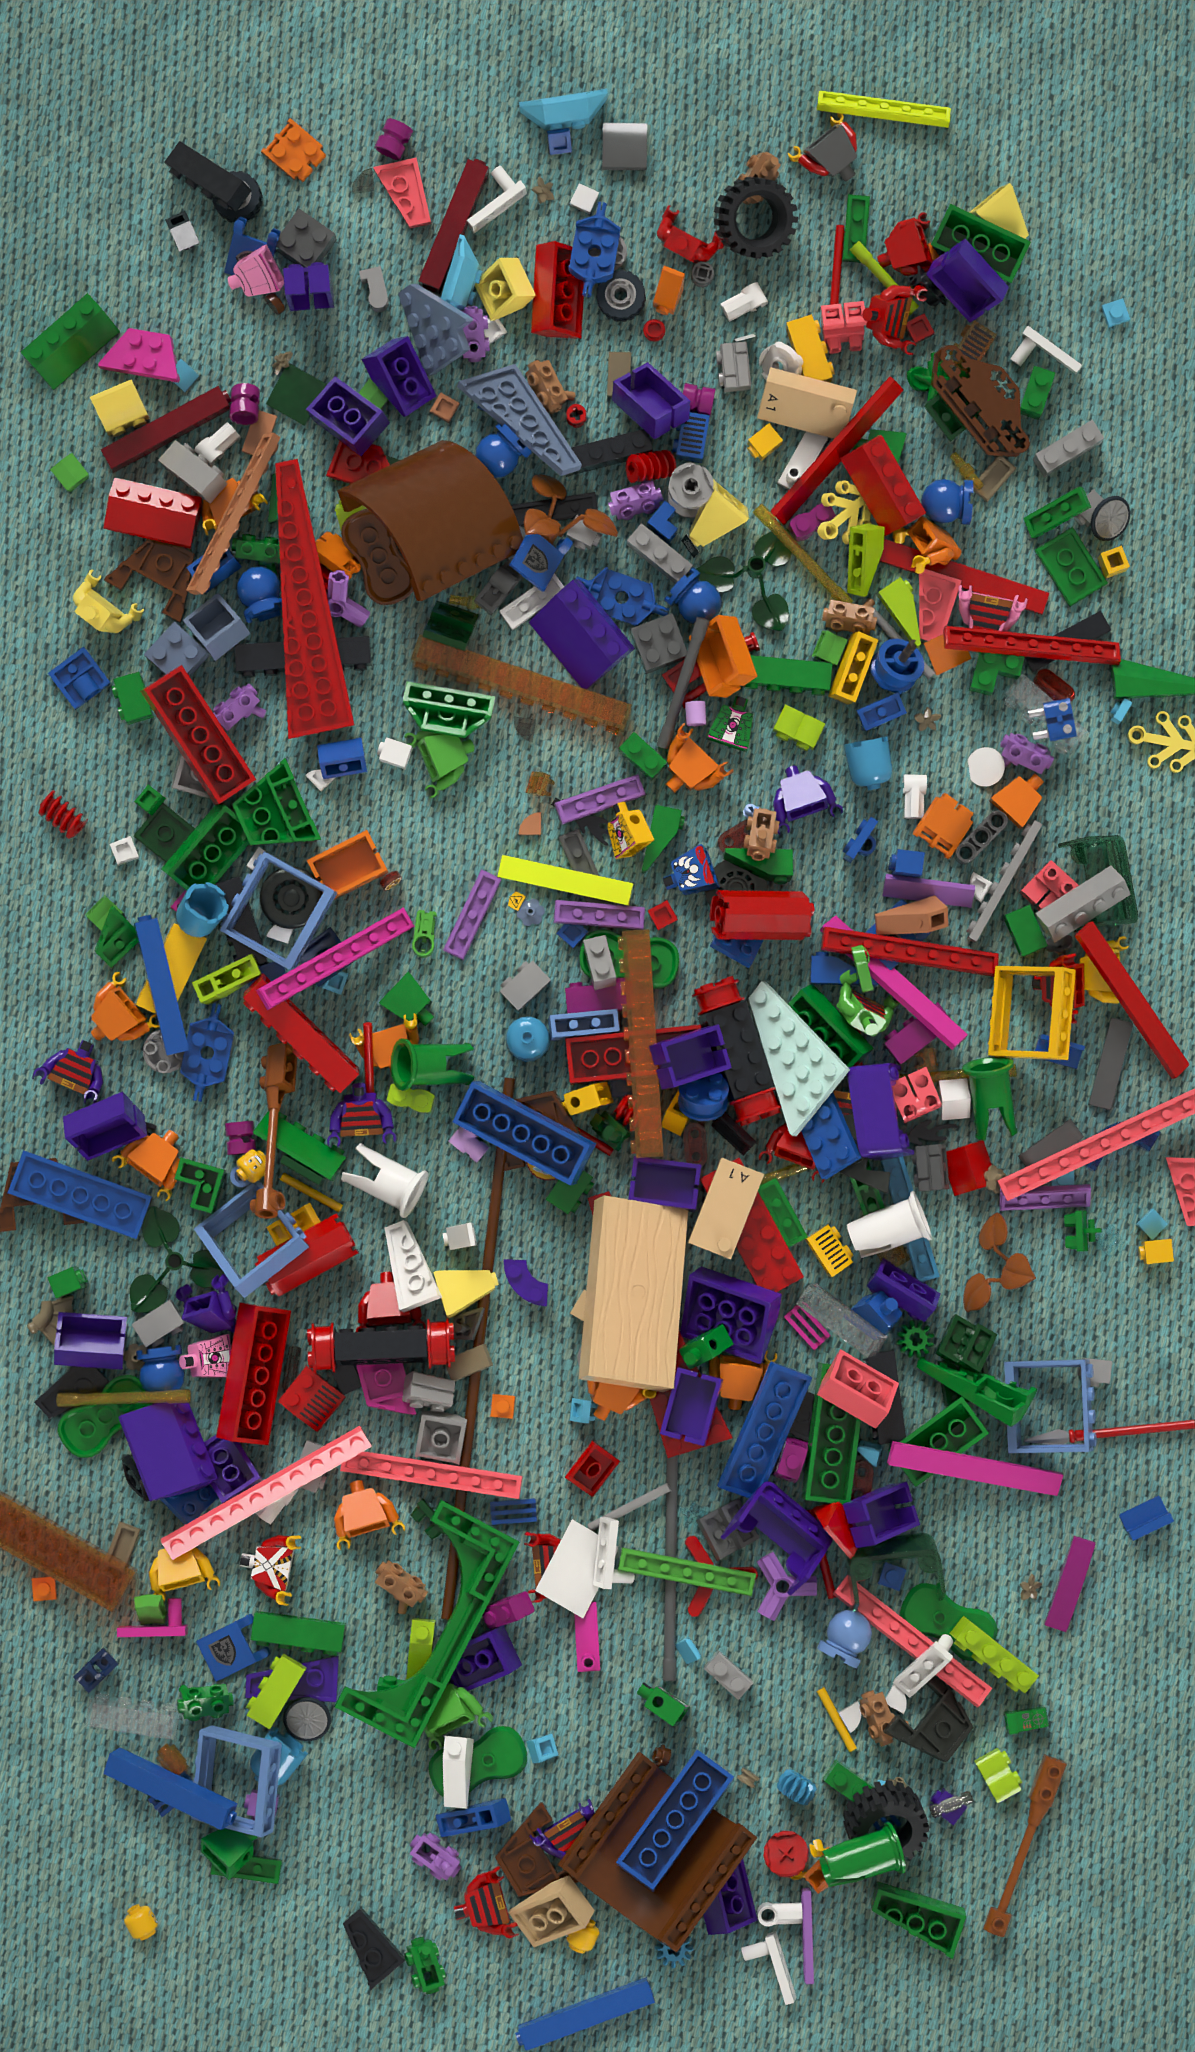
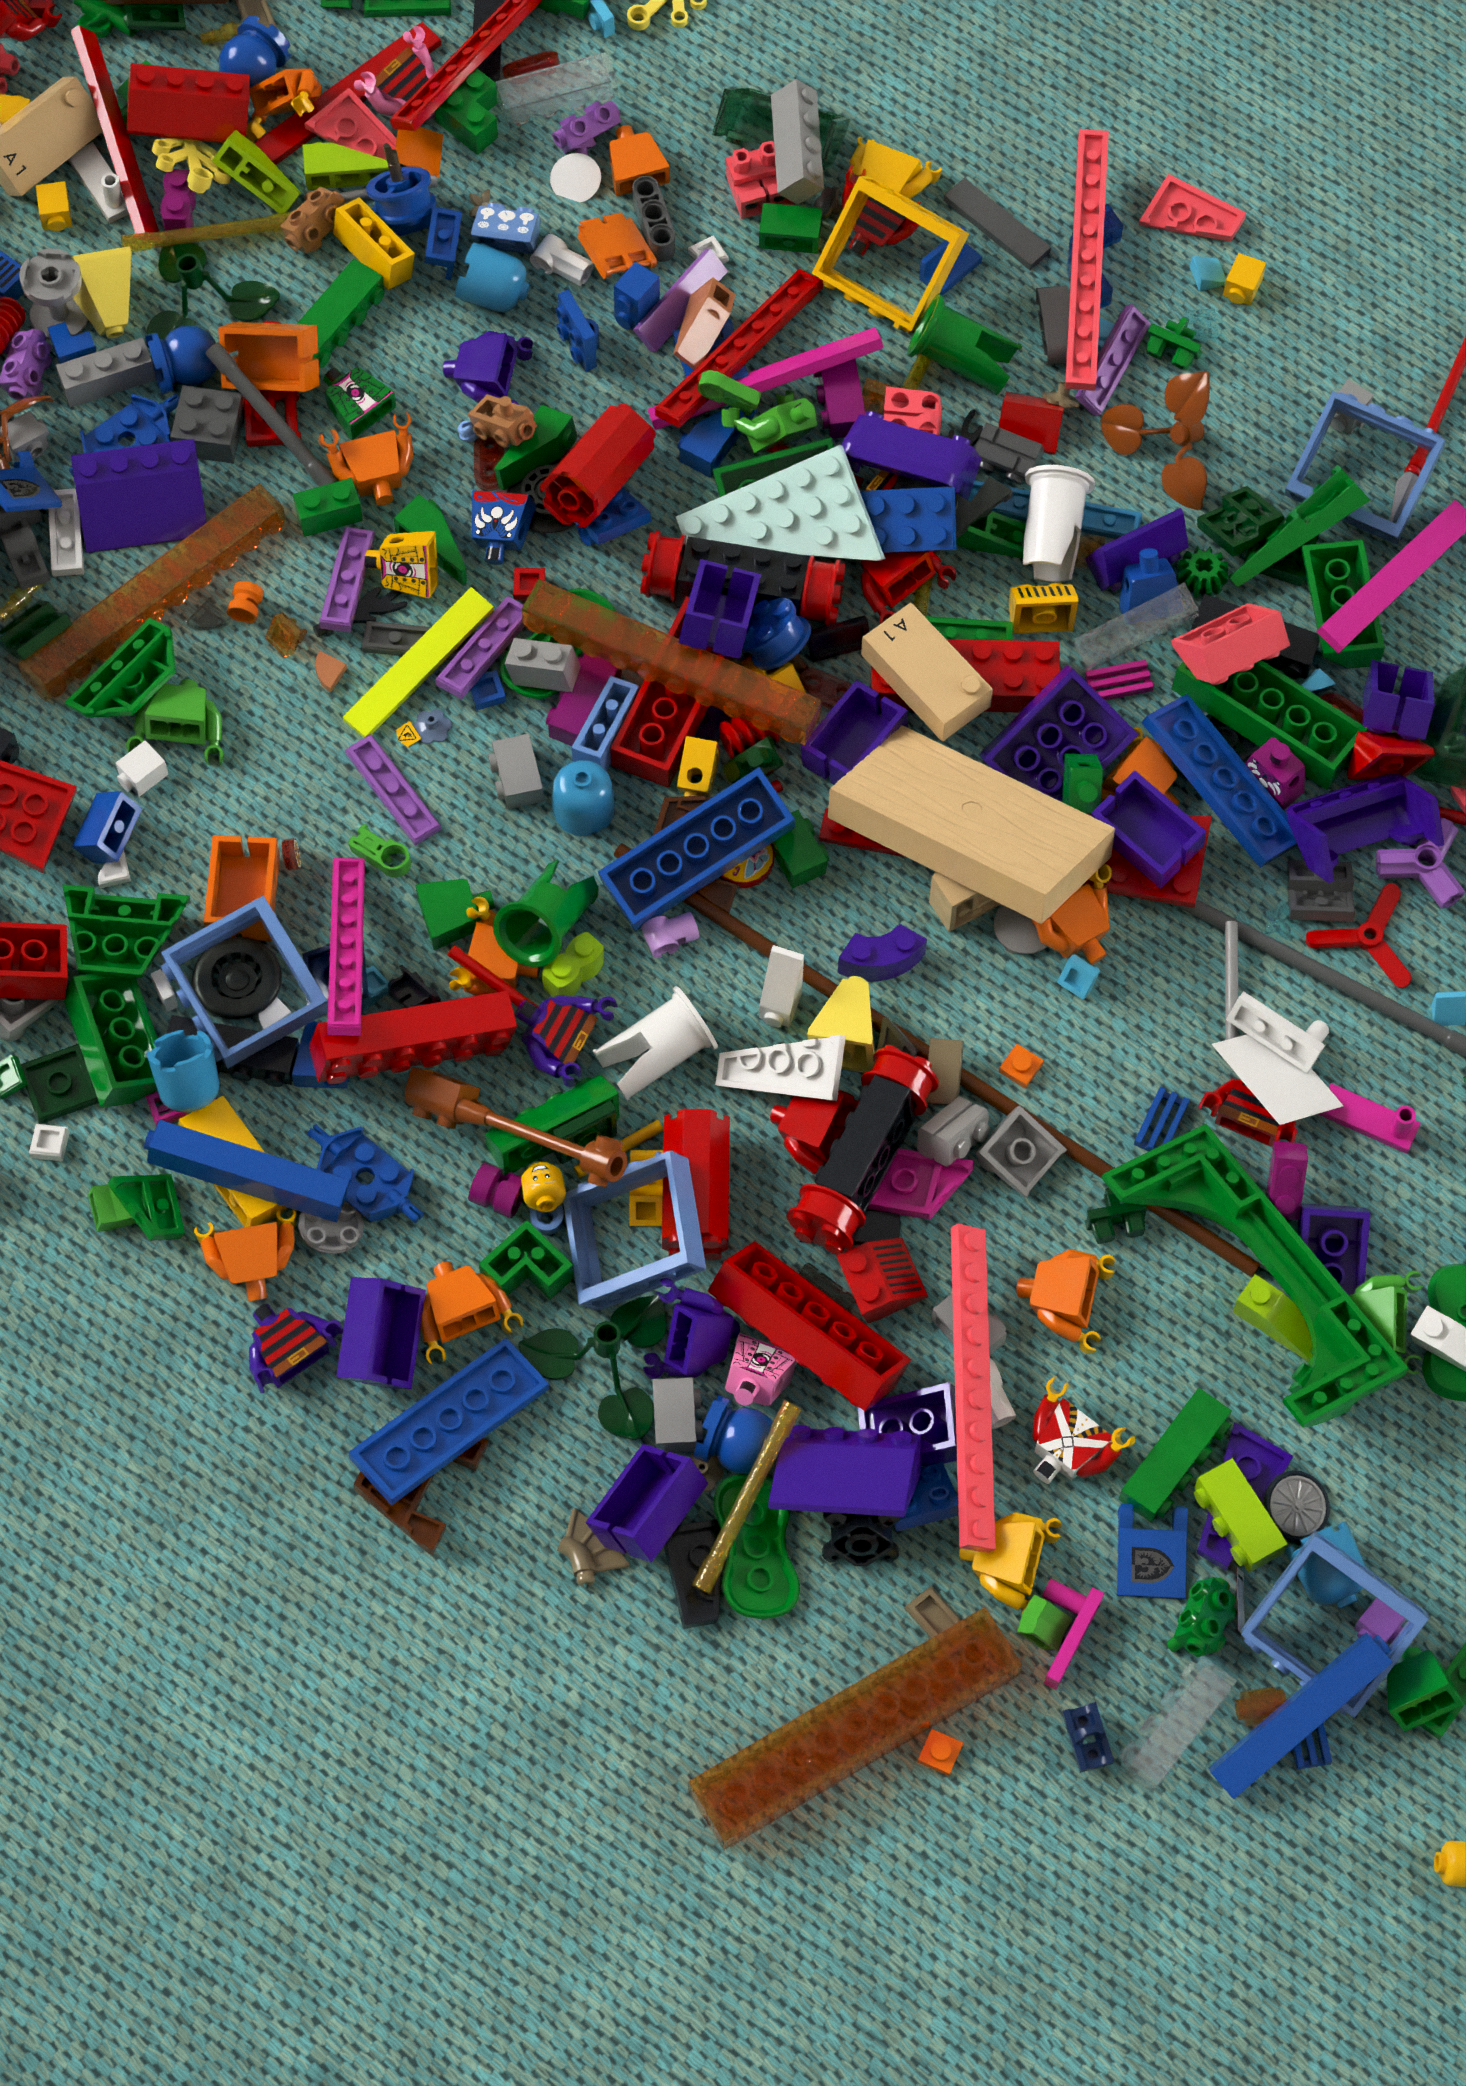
camera: 60 degrees left, 20 degrees down
(68, 1281) = (553, 1492): green brick -> none
(226, 980) = (290, 1094): lime slope -> none
(228, 1716) = (1240, 1599): none -> white sticker
(332, 1022) = (411, 990): none -> black hinge
(402, 1585) = (1190, 1294): medium nougat brick -> none
(435, 1474) = (1063, 1181): coral plate -> none
(547, 745) = (245, 602): none -> orange wheel
(592, 1468) = (1156, 1001): red slope -> none
(686, 1571) = (1349, 956): bright green tile -> none
(690, 546) = (116, 337): black sticker -> none
(695, 713) = (313, 423): lavender piece -> none
(799, 728) = (404, 335): lime brick -> none
(829, 647) = (331, 258): bright green piece -> none
(912, 748) = (507, 228): none -> medium blue slope
(954, 1099) = (949, 386): white piece -> none
(1007, 872) = (723, 227): light grey plate -> none
(1058, 719) = (570, 67): blue piece -> none
(1132, 1000) = (937, 151): red tile -> none

